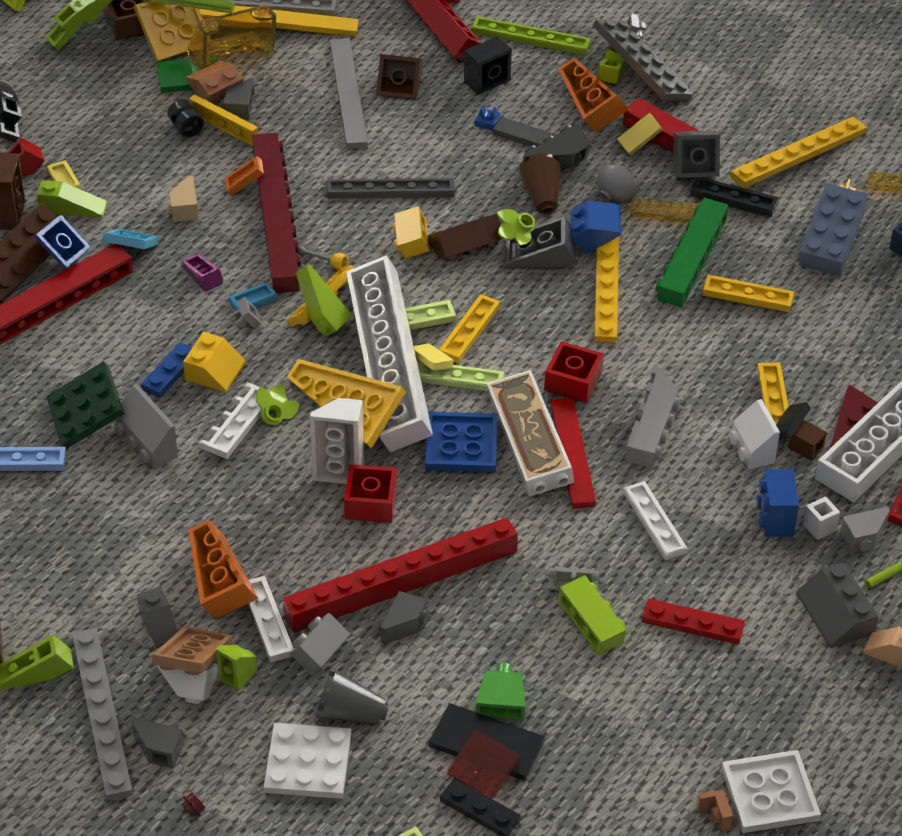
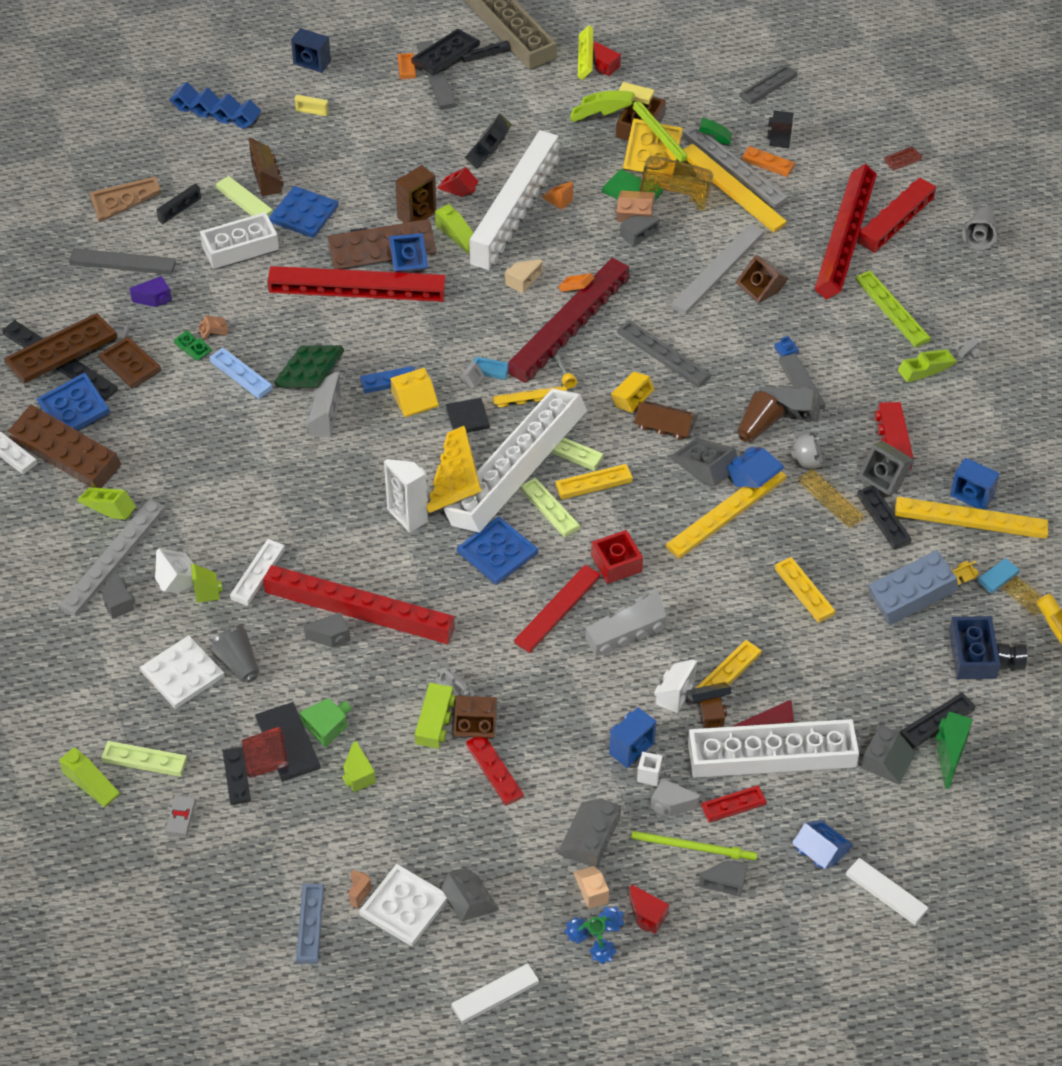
camera: 45 degrees right, 5 degrees up
(62, 173) = (474, 211): light yellow tile -> none
(100, 142) = (514, 200): none -> white brick
(129, 115) = (560, 195): none -> orange slope
(130, 238) = (459, 278): medium azure tile -> none
(157, 615) = (201, 524): dark grey slope -> none
(185, 118) = (588, 219): black wheel -> none
(190, 650) = (179, 555): medium nougat plate -> none
(193, 805) = (94, 646): dark red plate -> none
(205, 273) = (481, 331): magenta slope -> none
(218, 572) = (259, 521): orange wedge -> none
(224, 120) = (612, 232): yellow plate -> none
(235, 426) = (386, 441): white hinge -> none
(275, 402) = (419, 443): lime plate -> none
(284, 349) = (468, 414): none -> black tile
(319, 643) = (263, 608): light grey brick -> none
(322, 304) = (514, 404): lime slope -> none
(370, 493) = (400, 541): red brick -> none
(432, 357) = (544, 482): light yellow tile -> none
(487, 65) = (824, 309): black brick -> none
(516, 226) = (696, 432): lime plate -> none
(530, 433) = (541, 575): brick -> none
(583, 711) = (357, 769): none -> lime slope
(592, 97) = (869, 377): orange wedge -> none
(630, 587) = (475, 716): none -> reddish brown slope
(640, 134) = (870, 428): light yellow tile -> none
(643, 60) = (939, 376): dark grey plate -> none
(655, 520) = (552, 690): white tile -> none
(692, 252) = (799, 534): green brick -> none
(775, 122) = (974, 484): none -> blue brick
(816, 735) = (468, 894): none -> dark grey slope
(876, 180) = (998, 575): none -> dark azure tile

